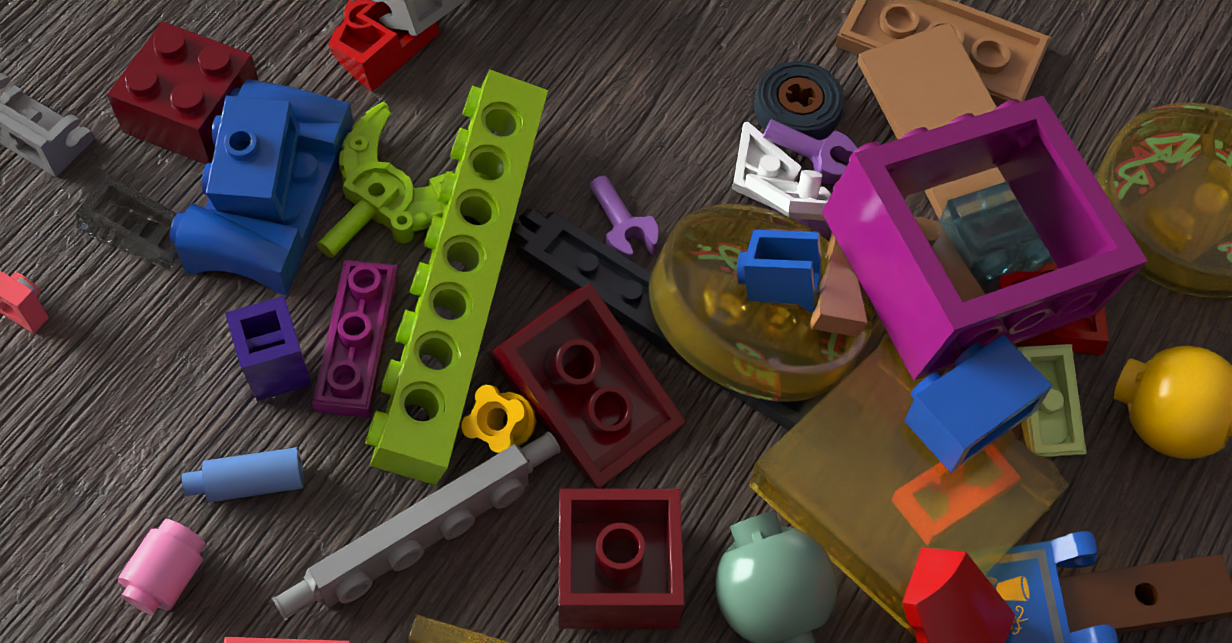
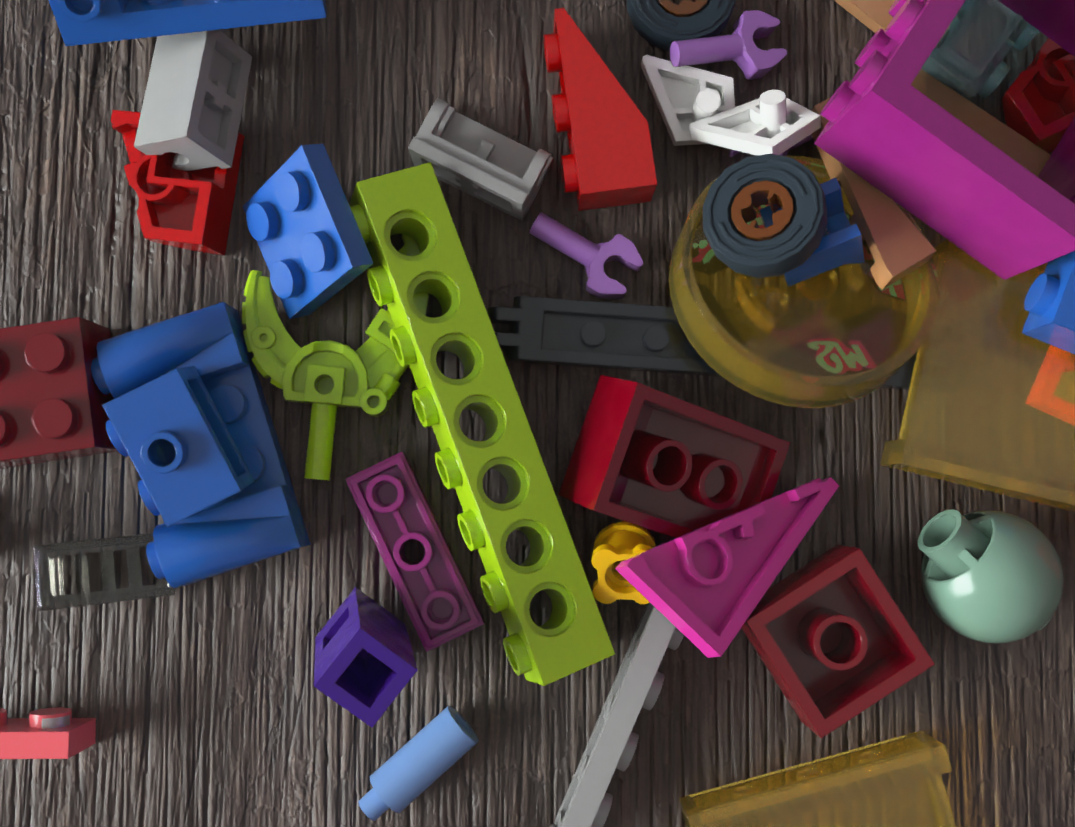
camera: 30 degrees left, 25 degrees up
(434, 92) = (306, 231): none -> blue plate
(559, 449) = (722, 570): none -> dark pink wing
(586, 124) = (480, 160): none -> light grey hinge
(683, 149) = (605, 129): none -> red slope
(751, 227) = (795, 227): none -> black bush

